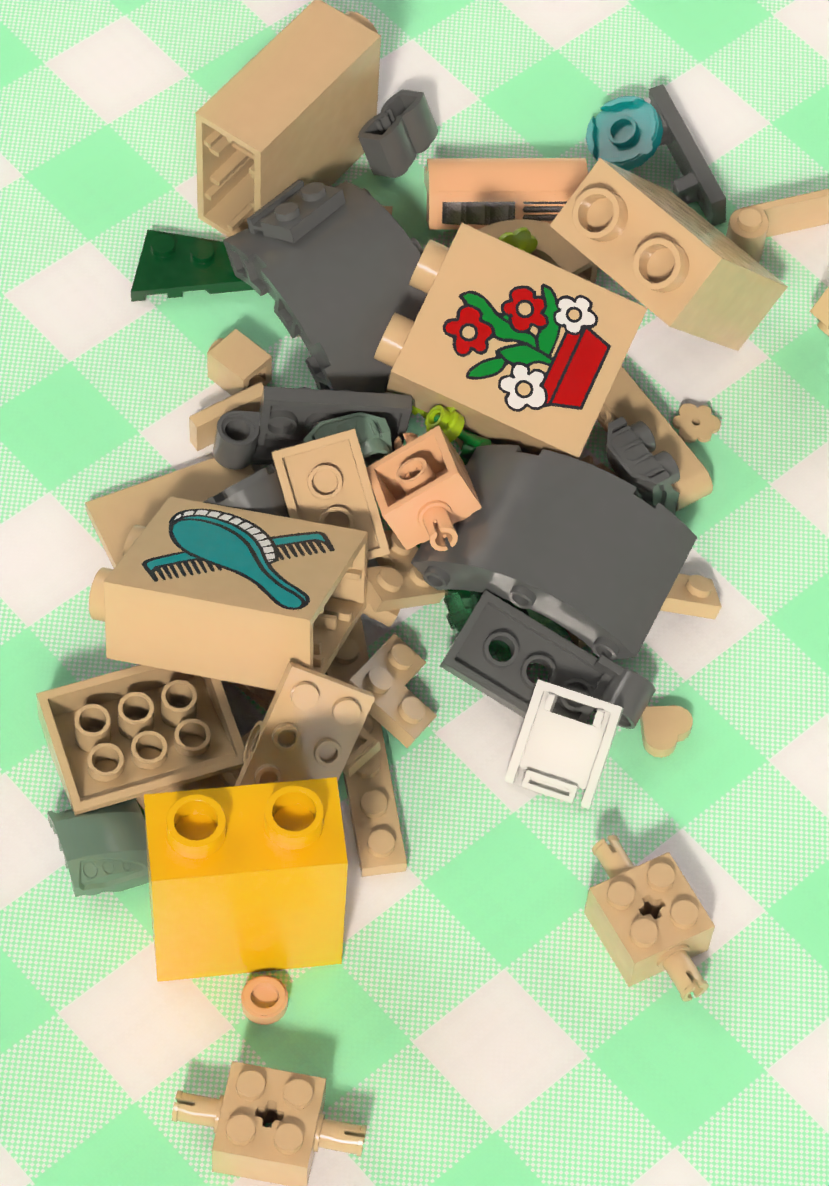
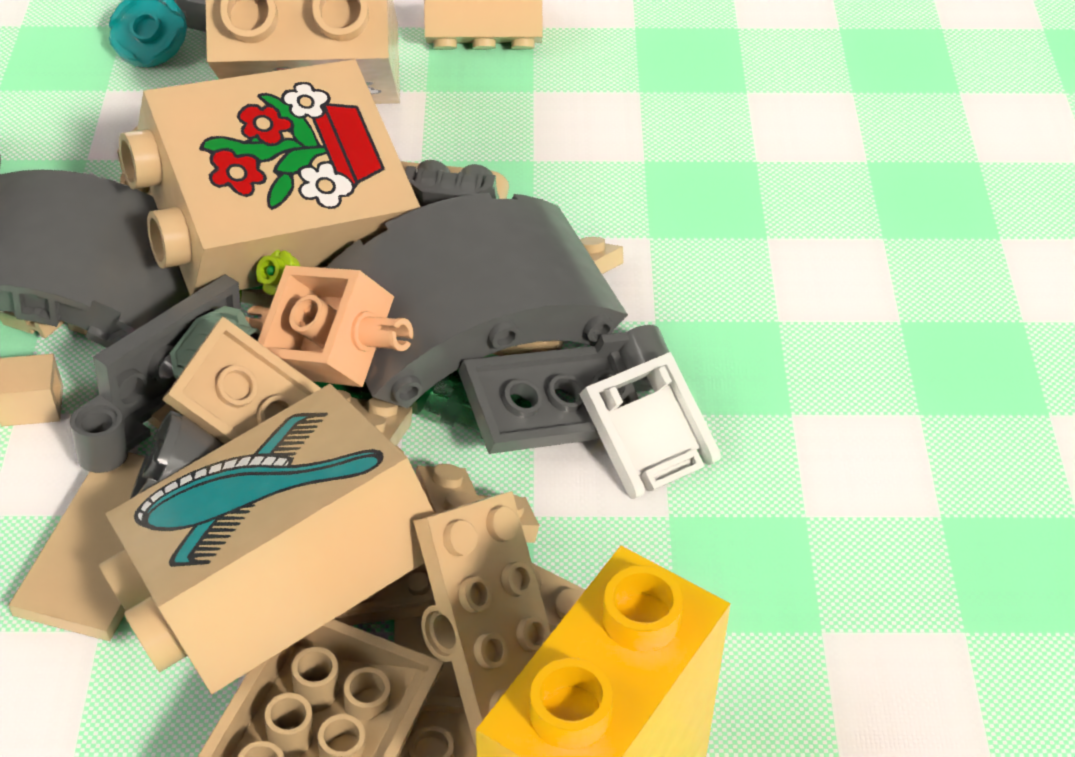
camera: 45 degrees left, 10 degrees down
(204, 423) = (56, 445): tan plate -> none
(498, 189) = (88, 125): light nougat brick -> none
(649, 919) = (877, 487): tan brick -> none
(664, 728) = (694, 359): tan tile -> none
(696, 423) = (444, 154): tan plant -> none

